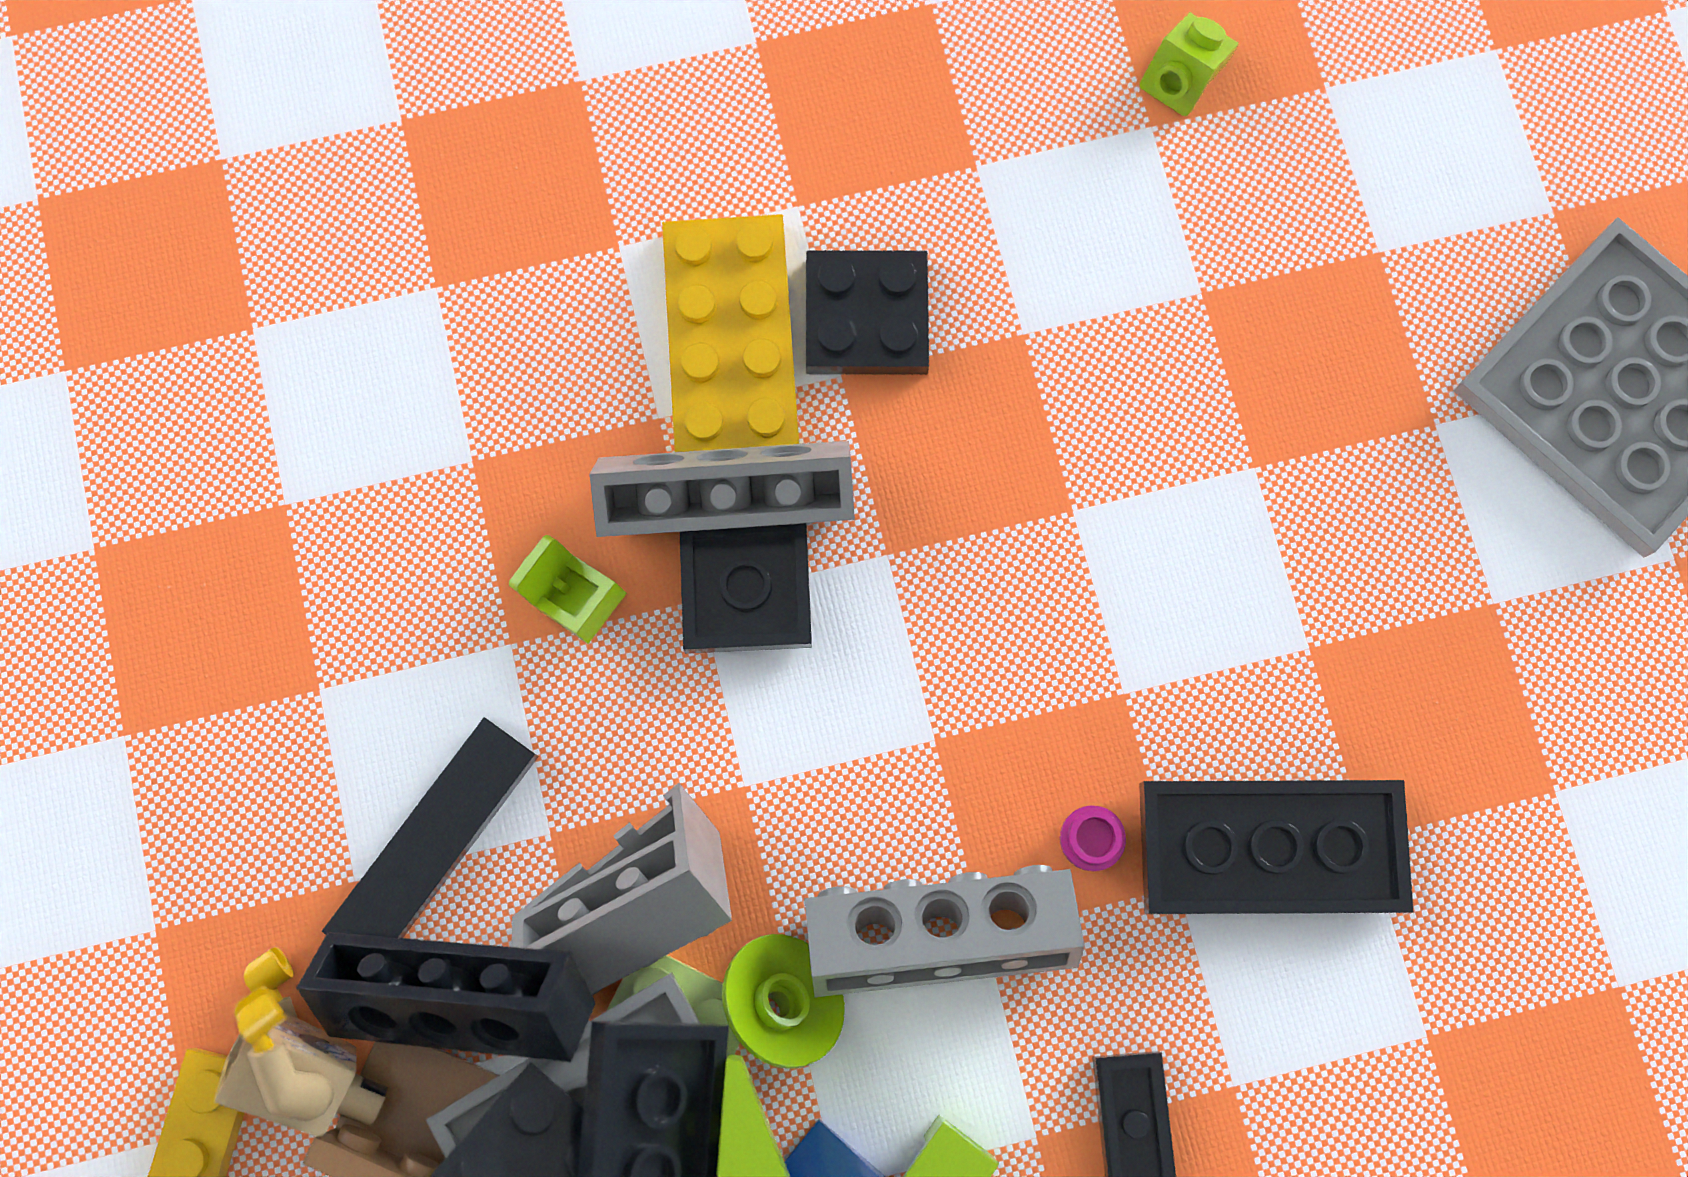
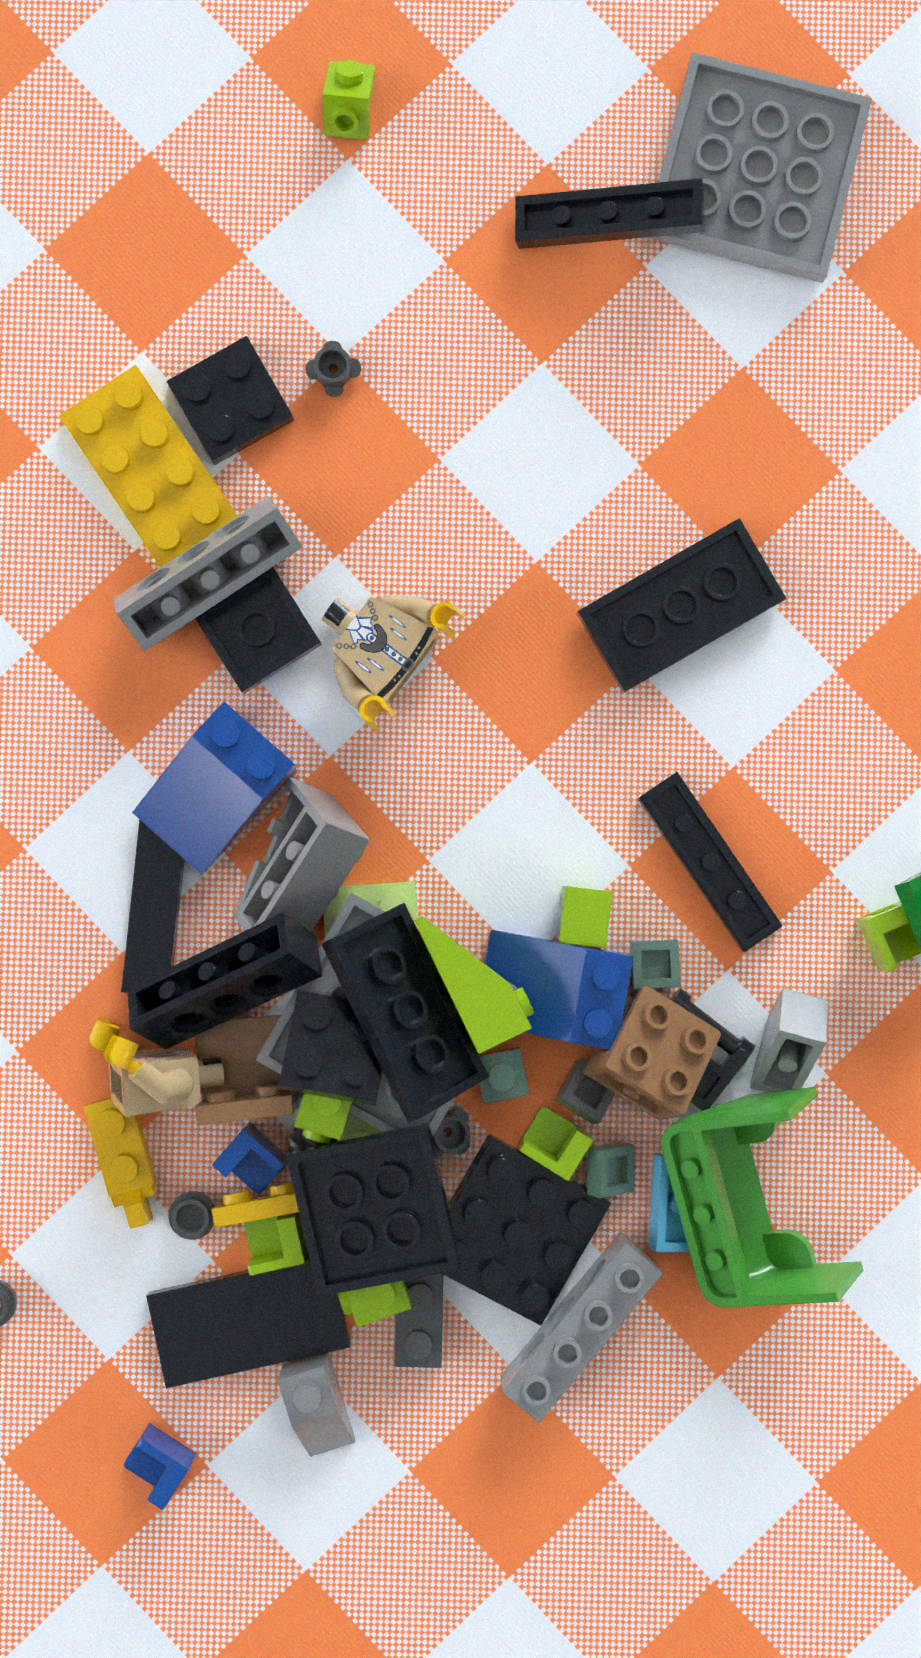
camera: 30 degrees left, 10 degrees up
(566, 589) = (144, 695): lime bracket -> none
(582, 746) = (214, 788): none -> blue slope
(780, 970) = (432, 856): lime dish -> none
(883, 692) = (383, 647): none -> tan torso
(915, 957) = (530, 774): light grey brick -> none
(1011, 324) = (331, 355): none -> dark grey plate
(1092, 838) = (565, 664): dark pink plate -> none
(1430, 342) = (609, 214): none -> black plate

